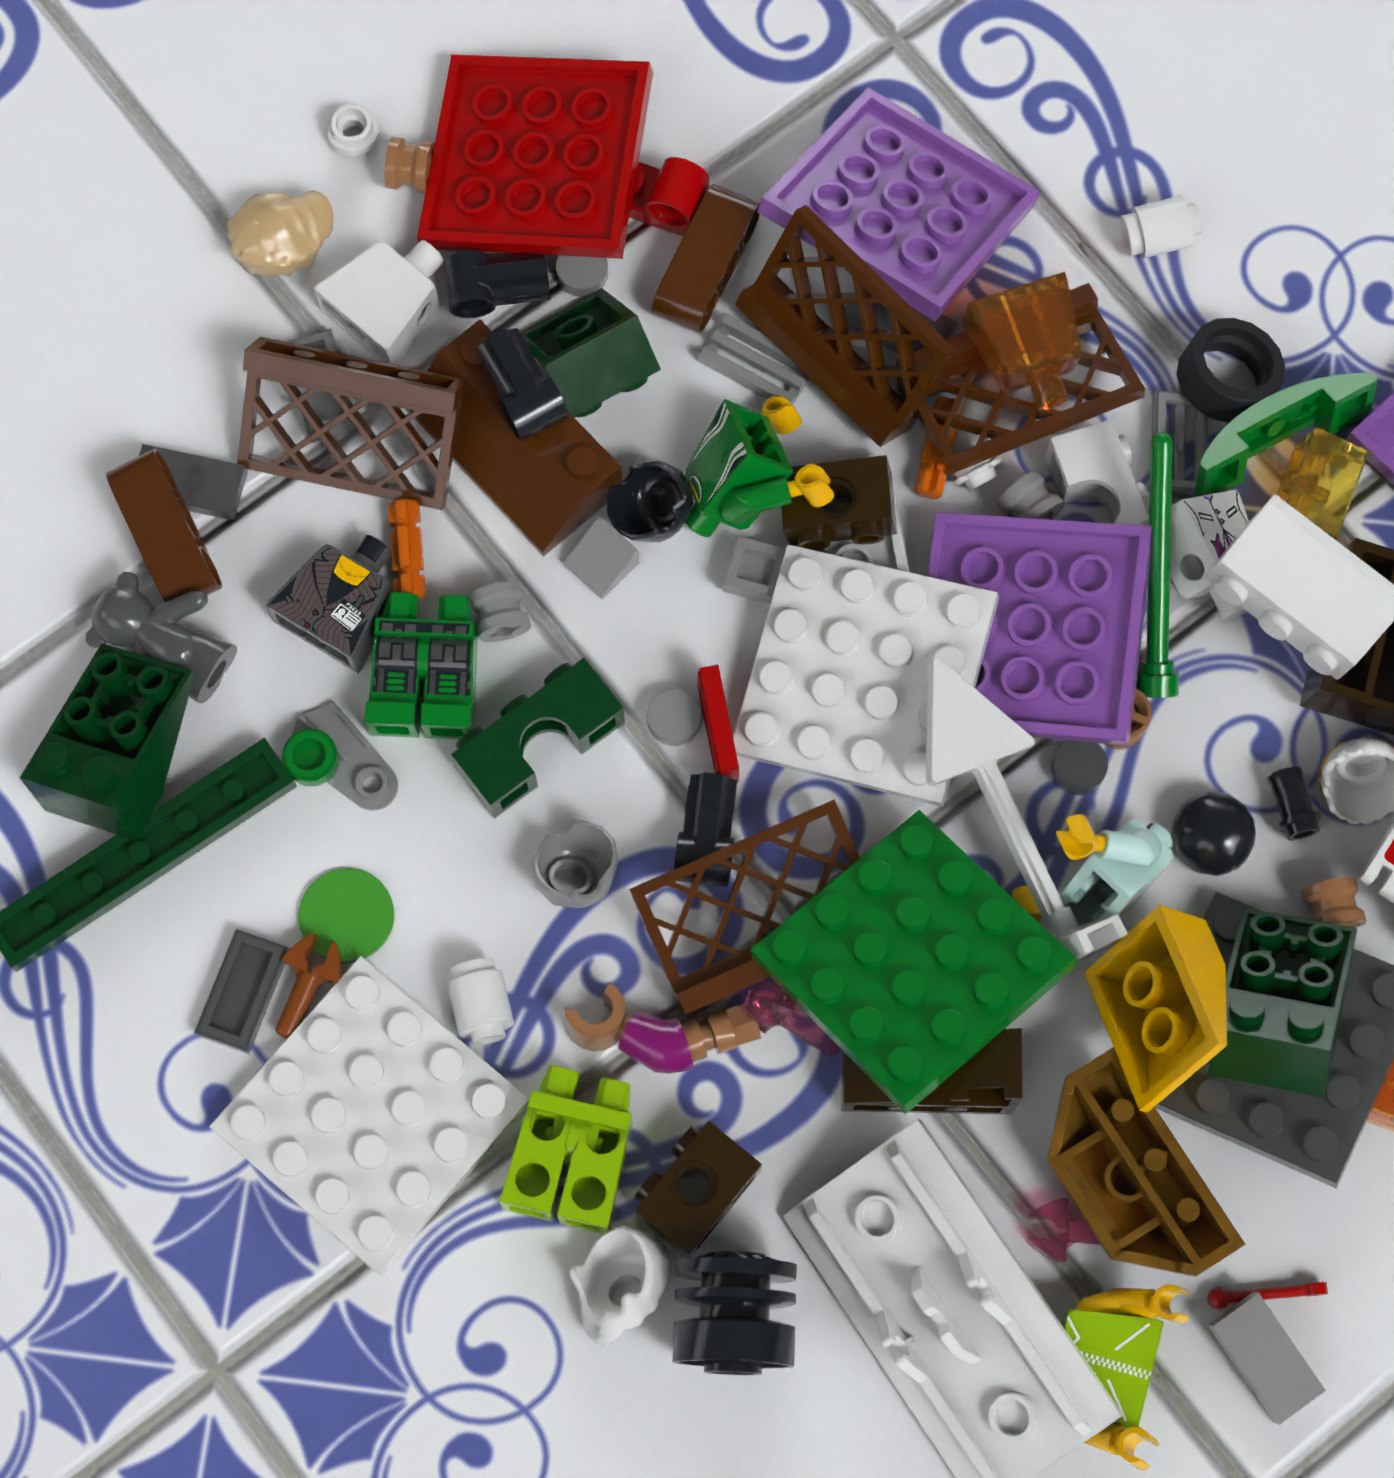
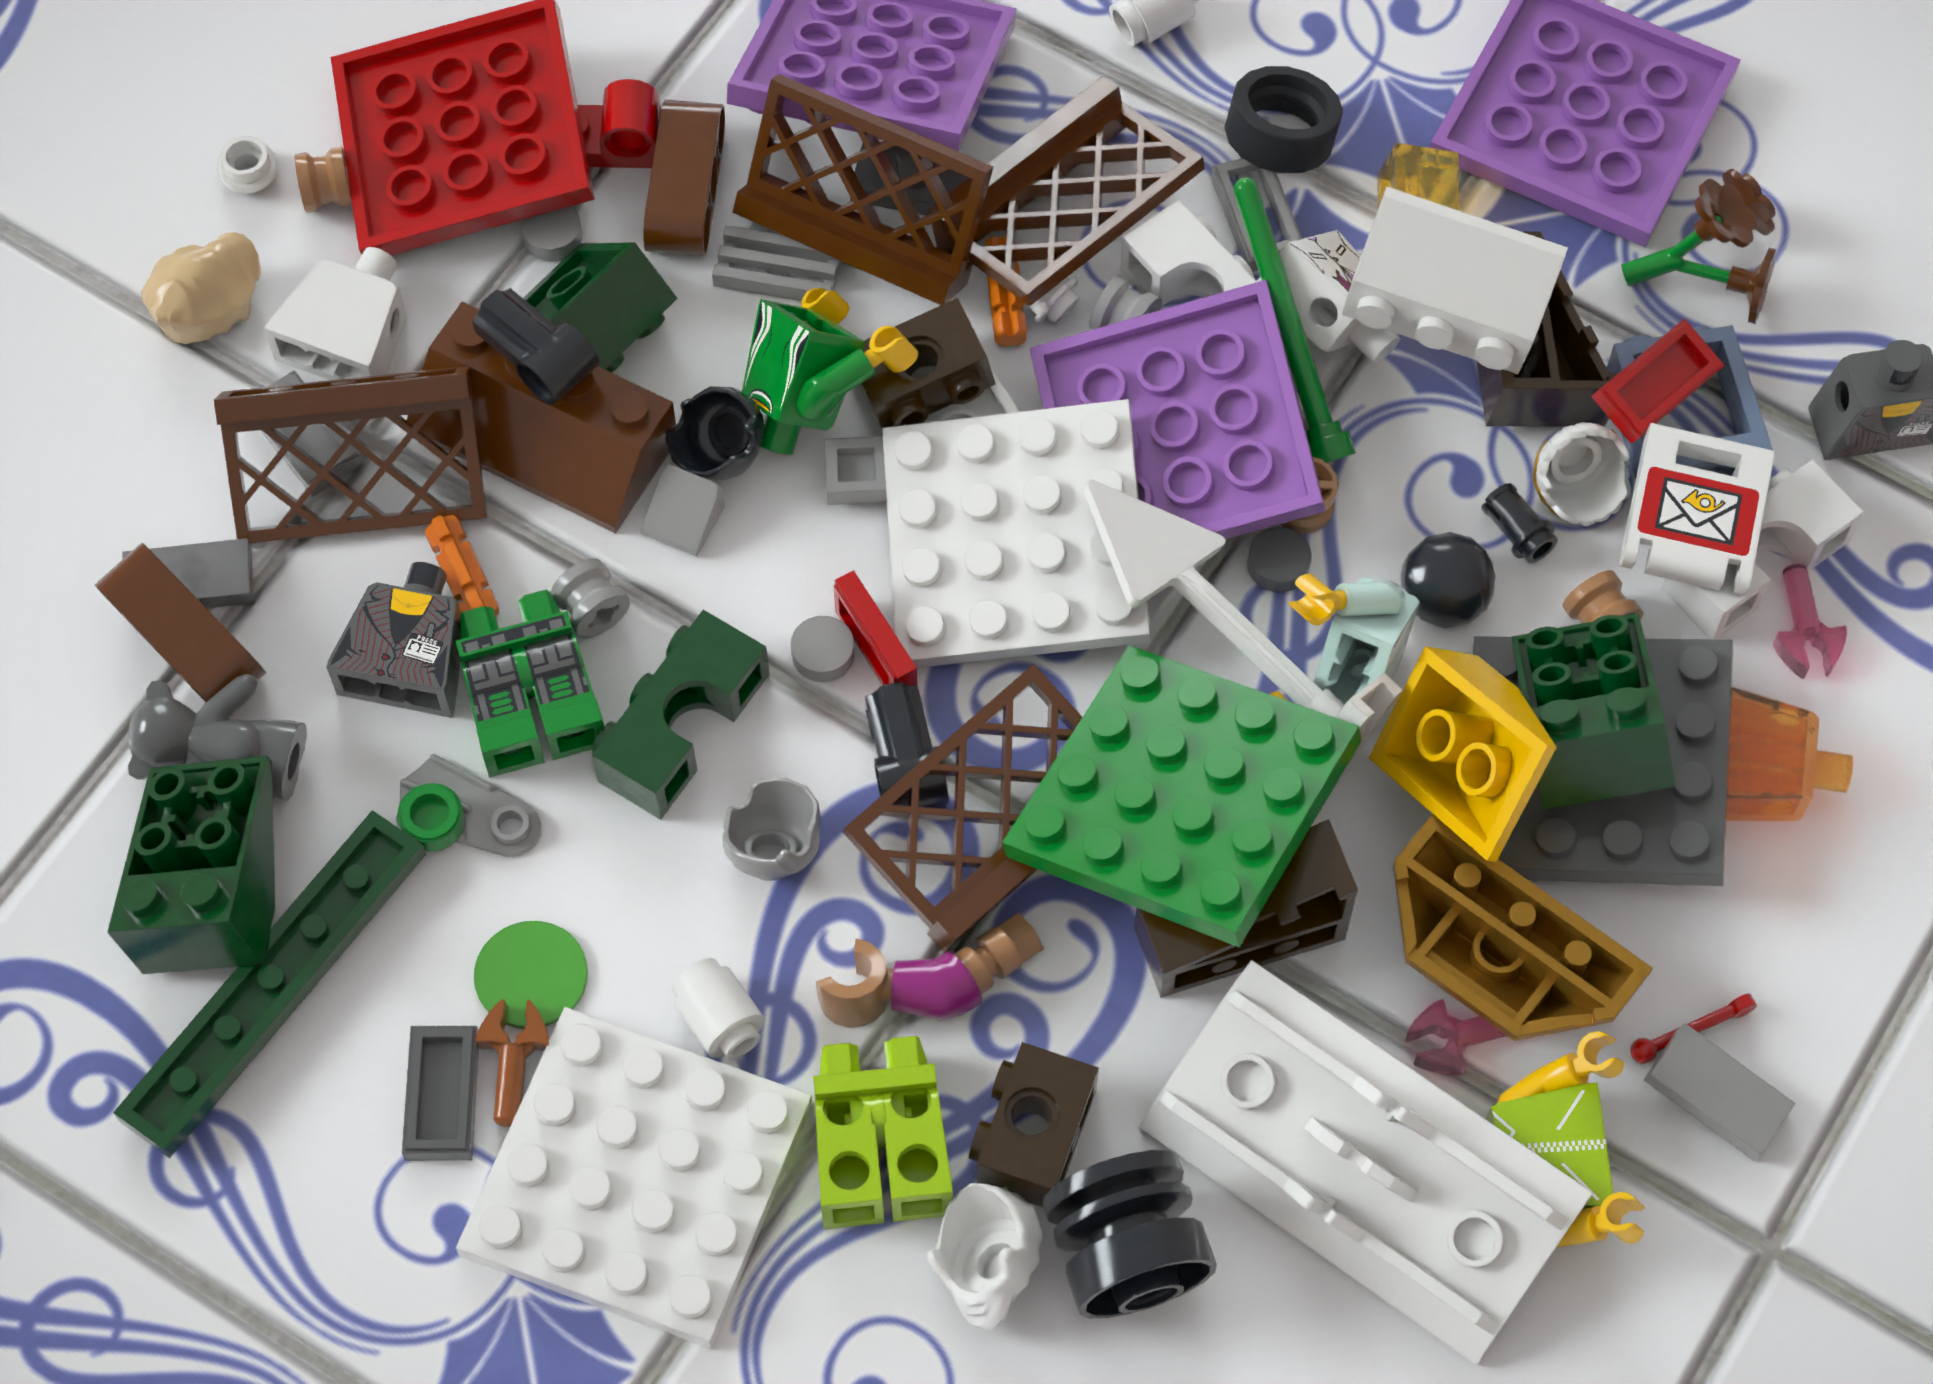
camera: 20 degrees left, 10 degrees down
(482, 283) = (449, 273): black piece -> none
(774, 1007) = (1049, 905): clear pink bar -> none
(1028, 337) = (1061, 140): clear orange torso -> none
(1325, 401) = (1355, 145): green slope -> none

